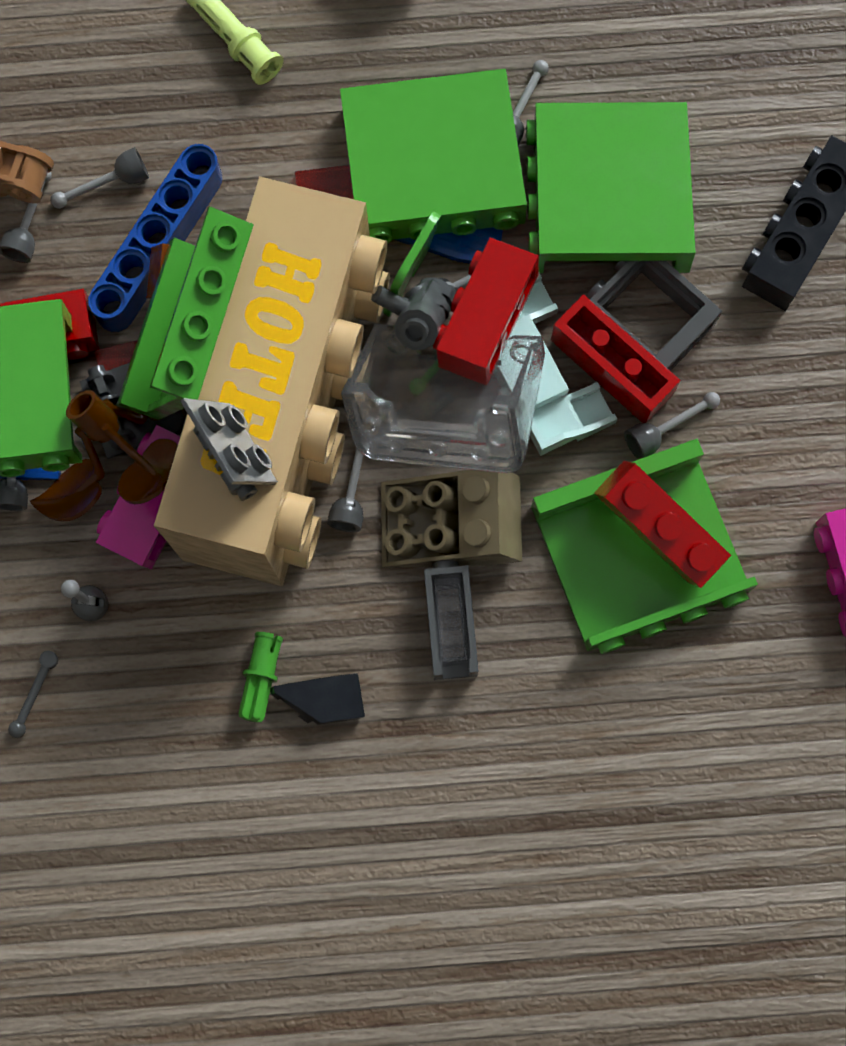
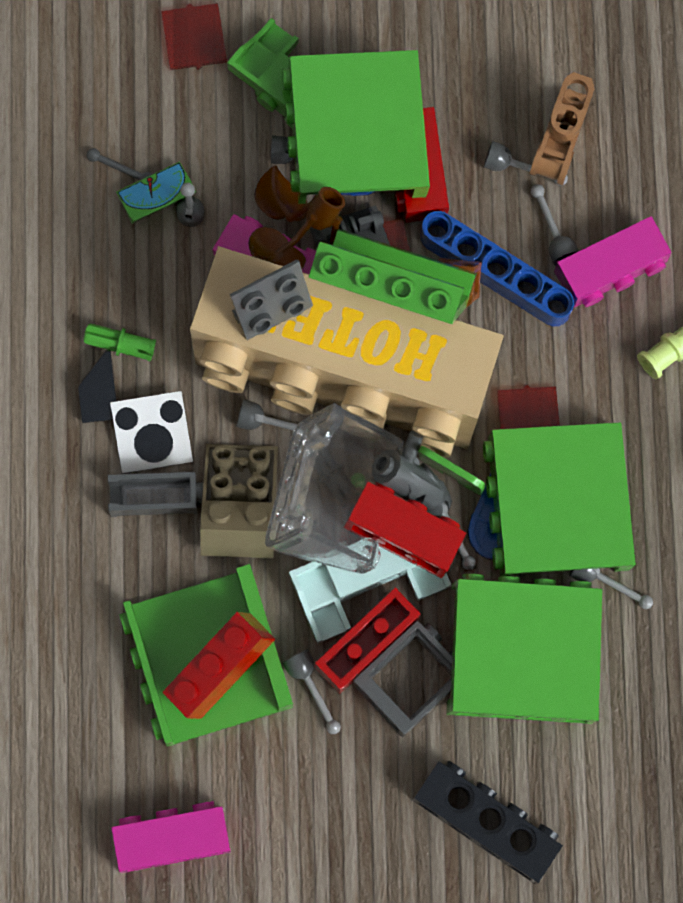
camera: 85 degrees right, 0 degrees up
(66, 645) = (154, 192): none -> slope
(145, 106) = (613, 262): none -> dark pink brick
(371, 631) = (151, 432): none -> white sticker

